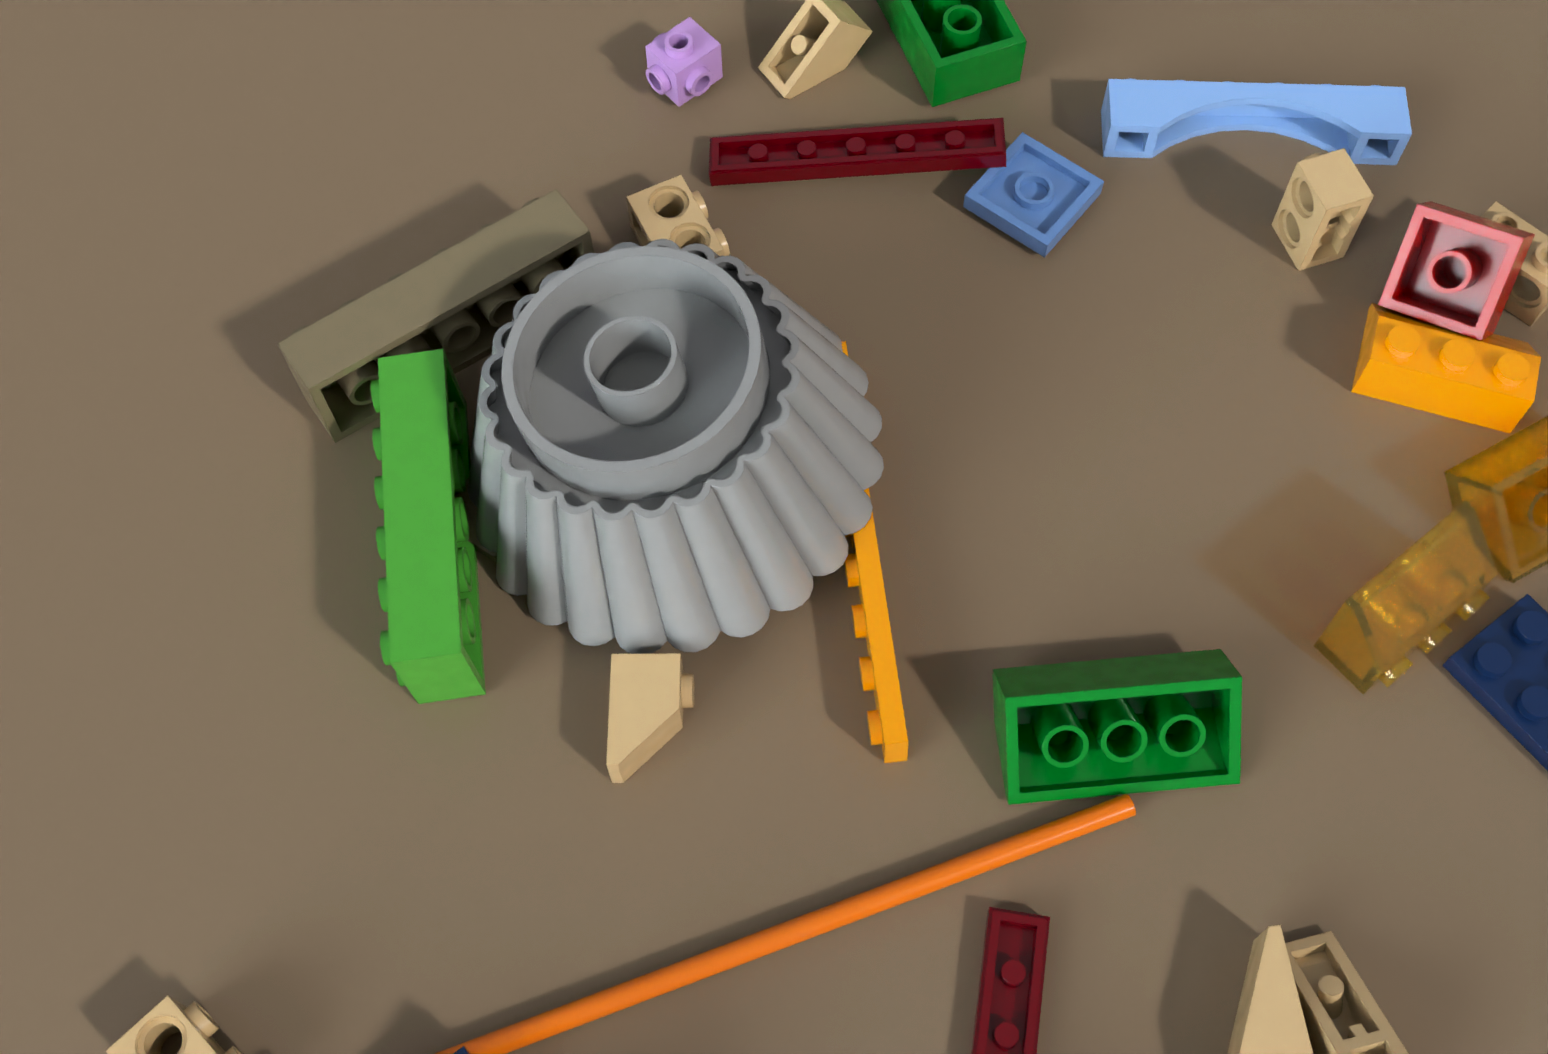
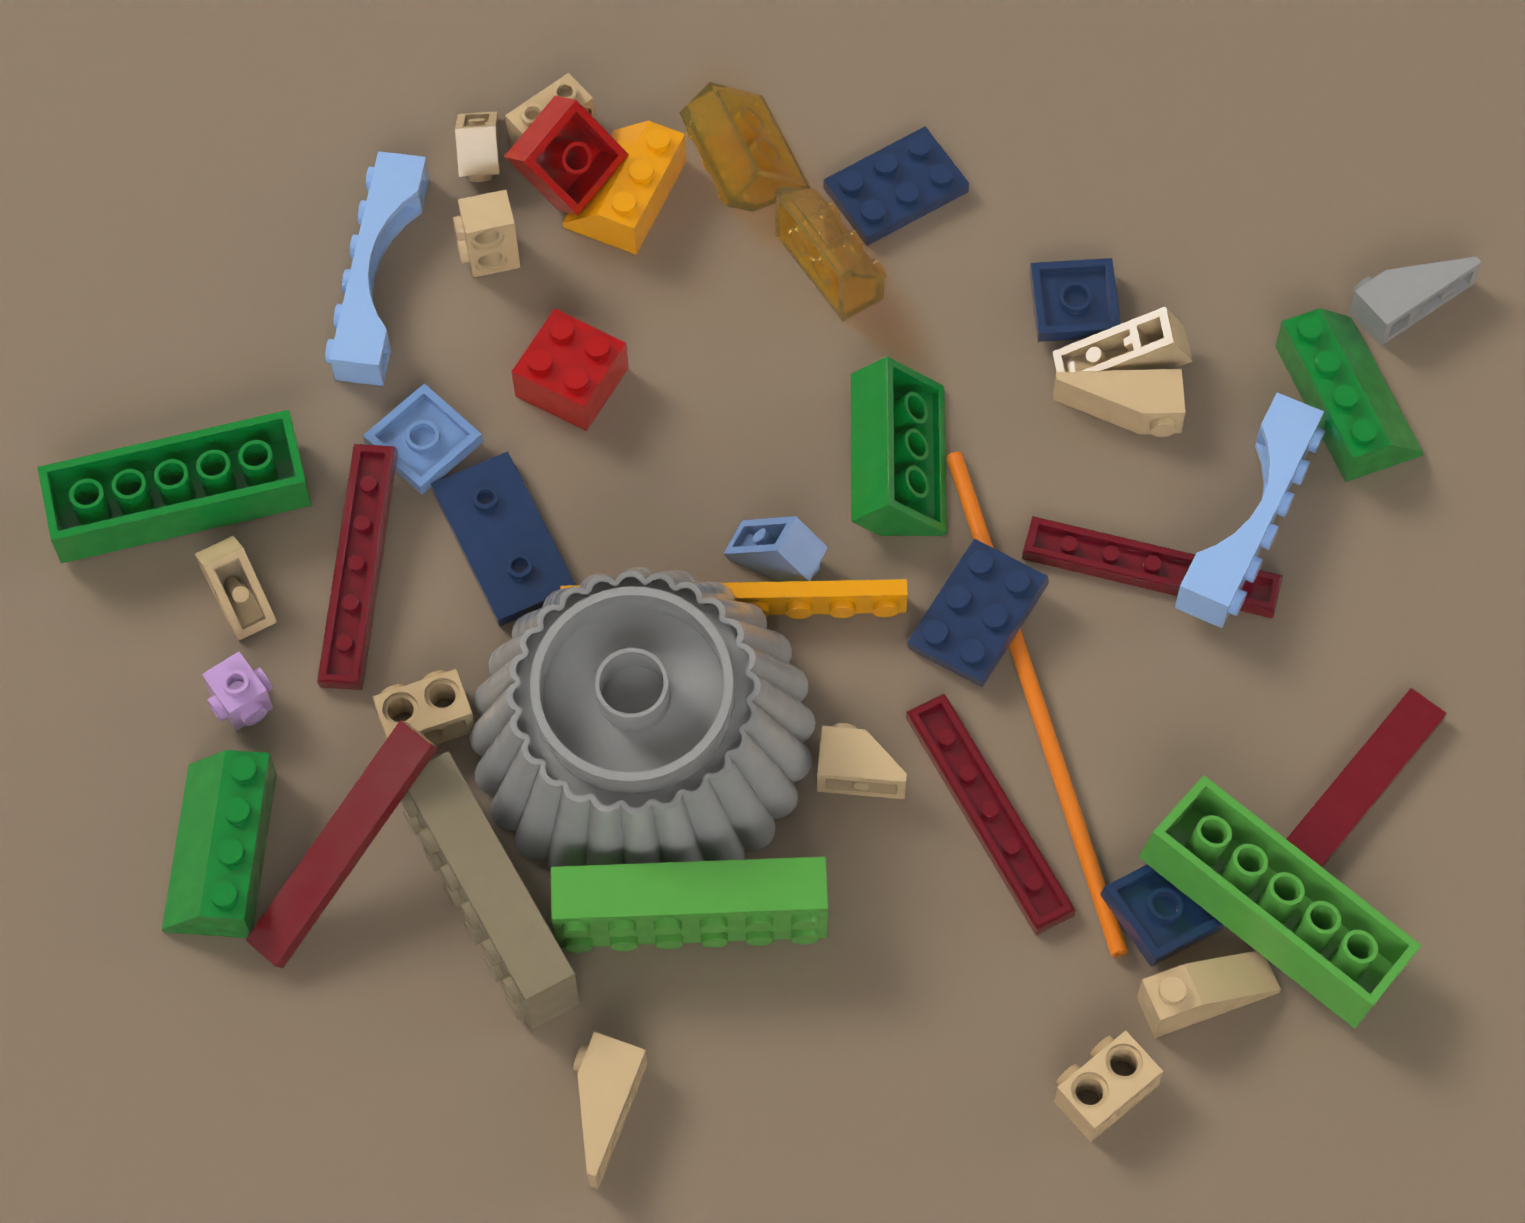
camera: 85 degrees left, 0 degrees up
(200, 469) = (607, 1086): none -> tan slope
(493, 161) = (341, 844): none -> dark red tile
(507, 87) = (221, 845): none -> green slope
(588, 894) = (990, 814): none -> dark red tile
(884, 850) = (978, 612): none -> dark blue plate
(920, 292) = (502, 537): none -> dark blue plate
(940, 588) = (777, 548): none -> medium blue slope
(1155, 325) = (570, 369): none -> red brick
(1425, 955) = (1073, 298): none -> dark blue plate
(1453, 181) = (478, 145): none -> tan slope

